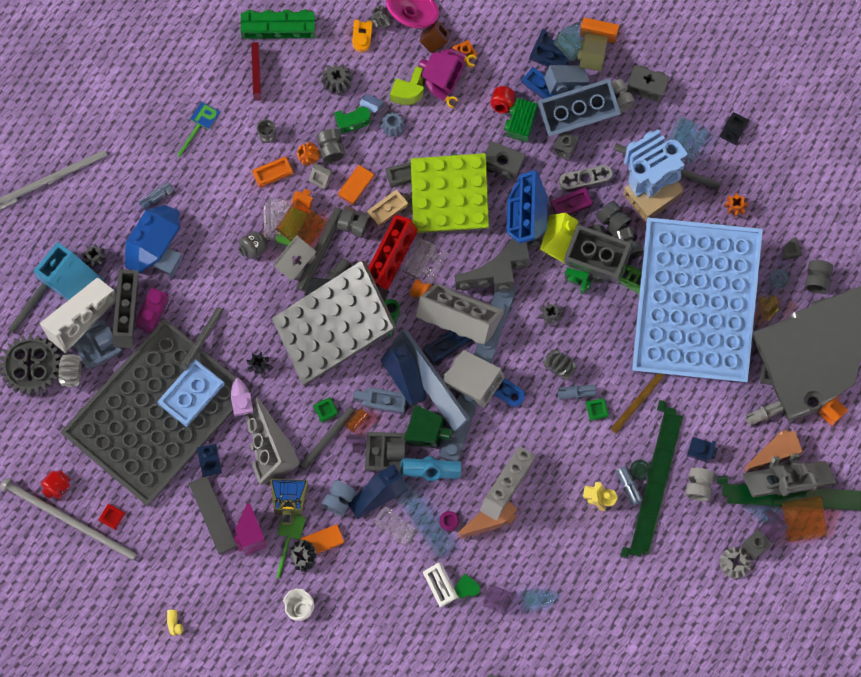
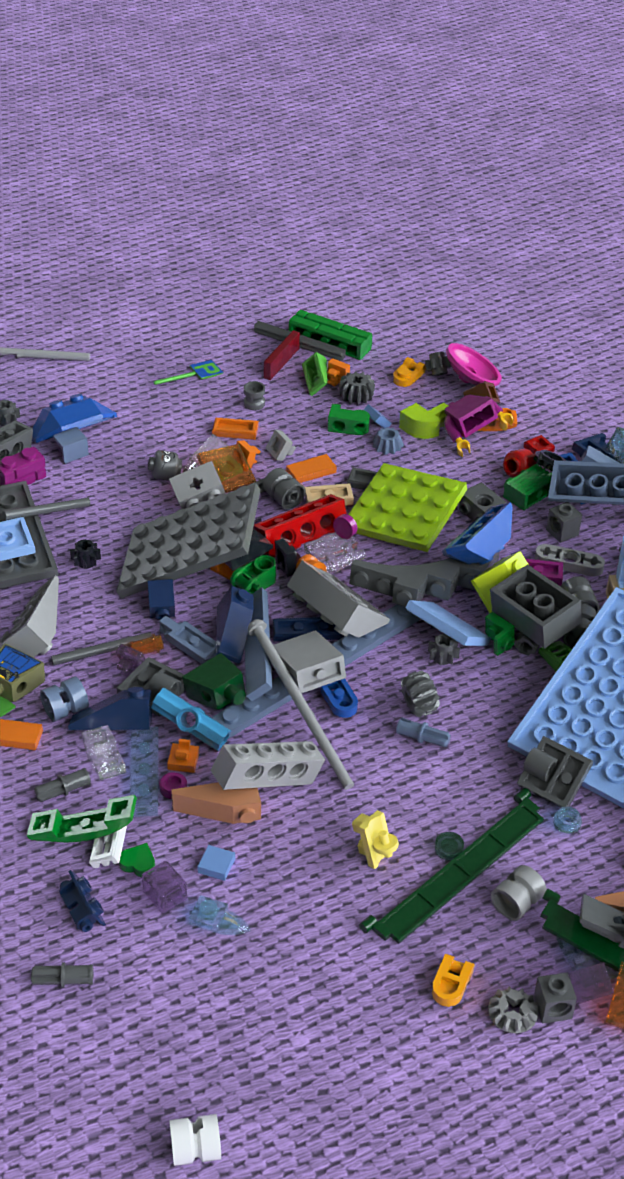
camera: 30 degrees right, 30 degrees down
(155, 195) = (110, 399): sand blue axle -> none
(241, 398) = (38, 571): lavender plate -> none
(264, 42) = (305, 342): none -> dark grey axle
(289, 78) = (315, 372): none -> bright green slope
(308, 154) = (282, 423): orange gear -> none
(311, 68) = (336, 370): none -> orange tile
(325, 409) = (122, 624): green tile -> none
(331, 145) = (309, 427): dark grey wheel -> none
(341, 378) = (161, 598): none -> dark blue brick
(383, 562) = (62, 785): none -> dark grey axle
(401, 289) = (286, 557): none -> black bracket
(419, 583) = (82, 826): none -> green slope
(424, 241) = (345, 526): none -> magenta tile
(432, 377) = (257, 628): none -> light grey bar
(441, 496) = (183, 756): none -> orange tile
(449, 631) = (88, 909): none -> dark blue hinge
(503, 67) = (539, 443): none -> red tile
(512, 562) = (216, 862): none -> medium blue tile
(530, 87) = (546, 459): none -> black gear
(542, 291) = (448, 623): none -> light blue tile
(597, 409) = (437, 763): green tile -> none
(629, 485) = (423, 852): sand blue axle -> none
(637, 402) = (482, 781): pearl gold bar -> none
(675, 381) = (554, 772): none -> dark grey plate
(693, 570) = (450, 988): none -> light orange plate
(702, 406) = (567, 814): none -> clear light blue plate
(702, 450) = (547, 862): dark blue bracket -> none

